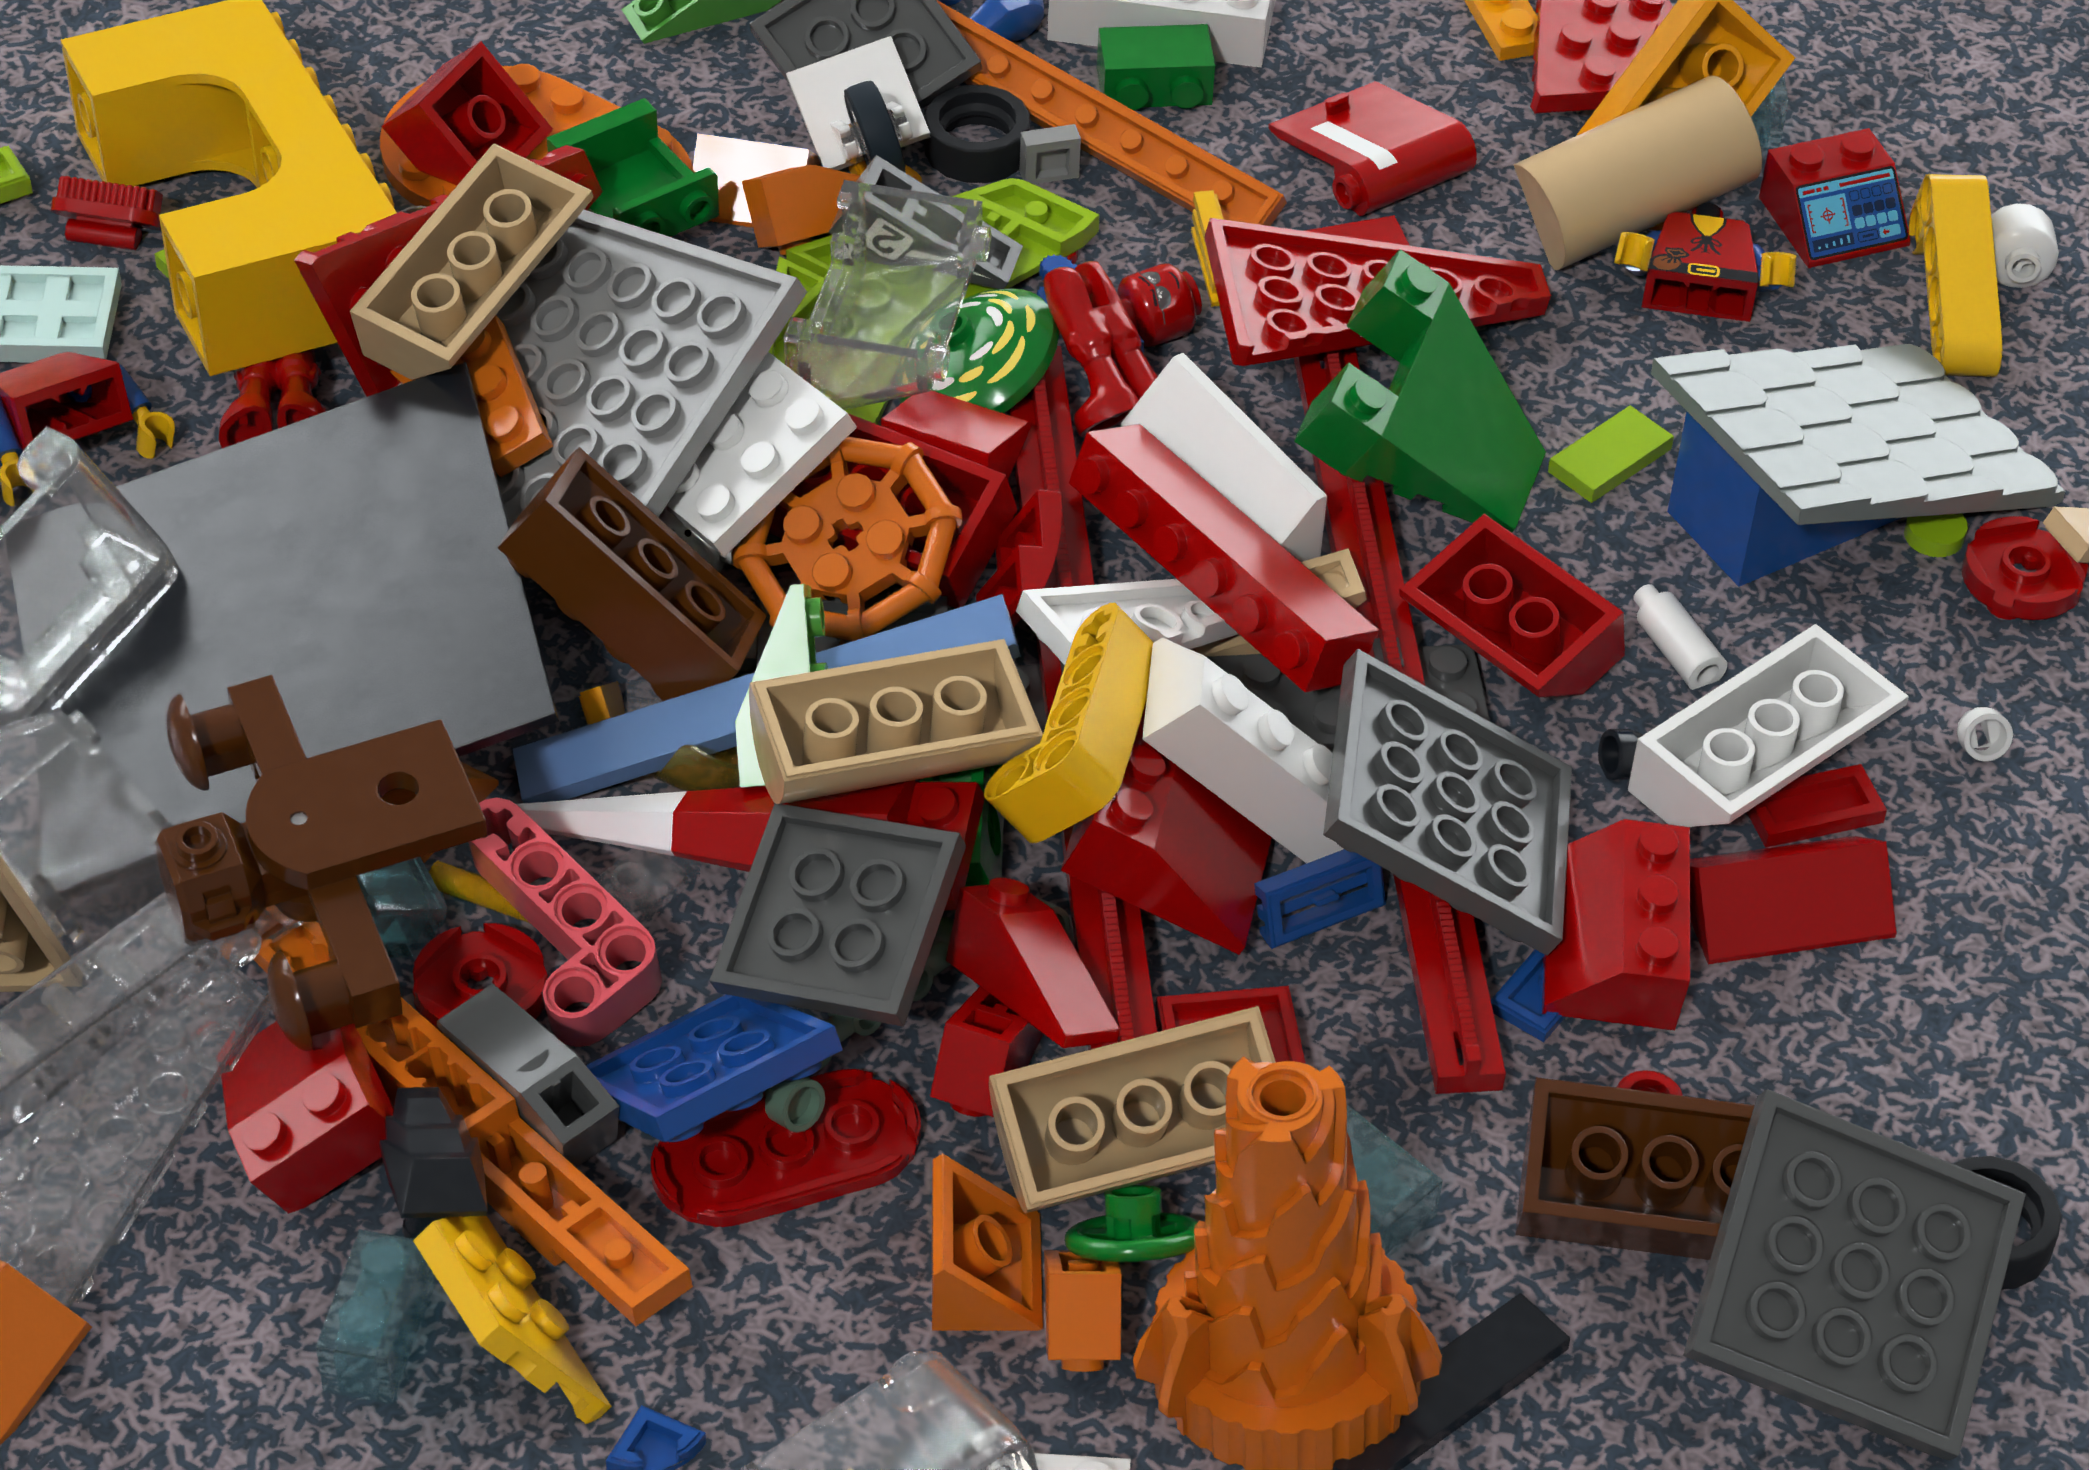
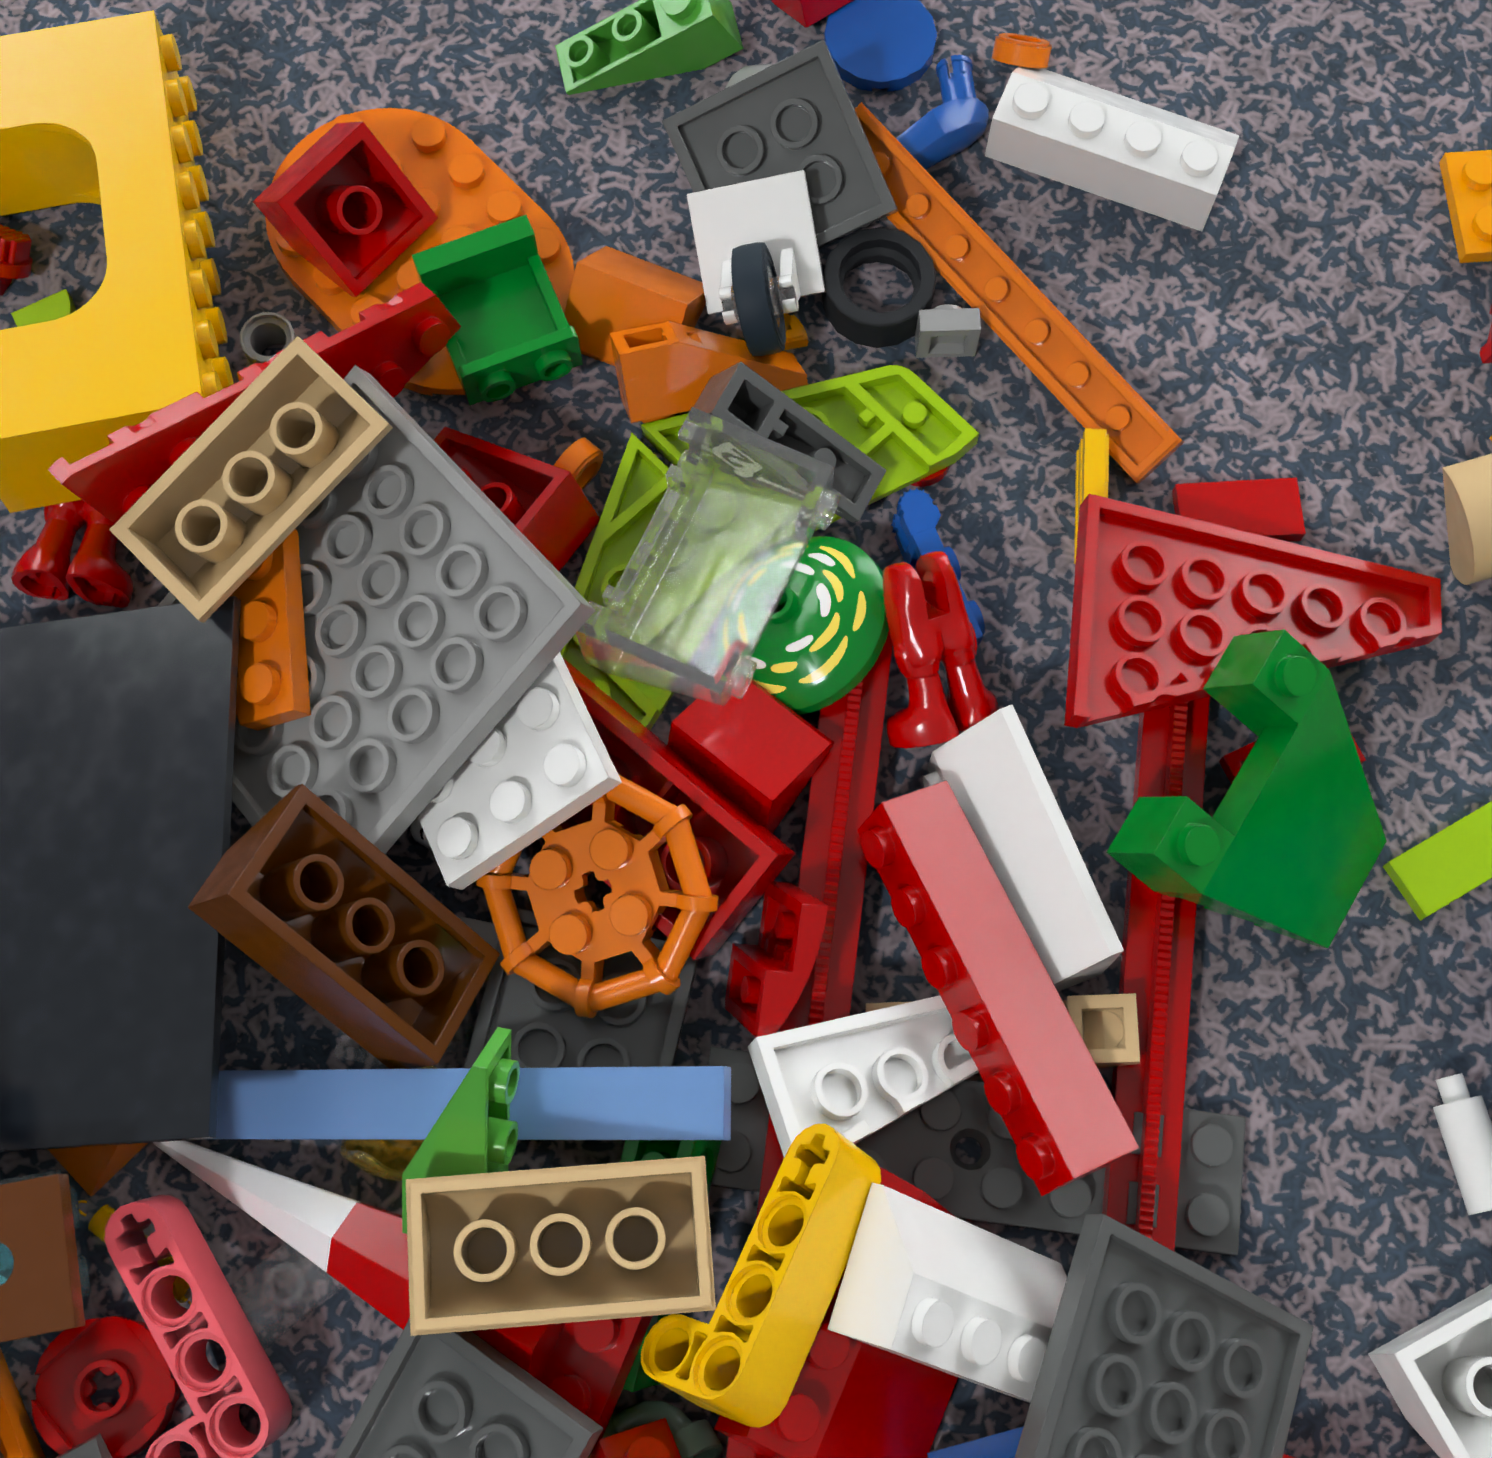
camera: 15 degrees right, 25 degrees up
(602, 702) = (312, 1039): light orange tile -> none
(1156, 65) = (1087, 225): green brick -> none
(1160, 302) = (1012, 571): red head -> none
(1380, 145) = (1300, 369): red door -> none
(1519, 611) = (1298, 1113): red slope -> none
(1617, 752) = (1385, 1309): black hinge -> none

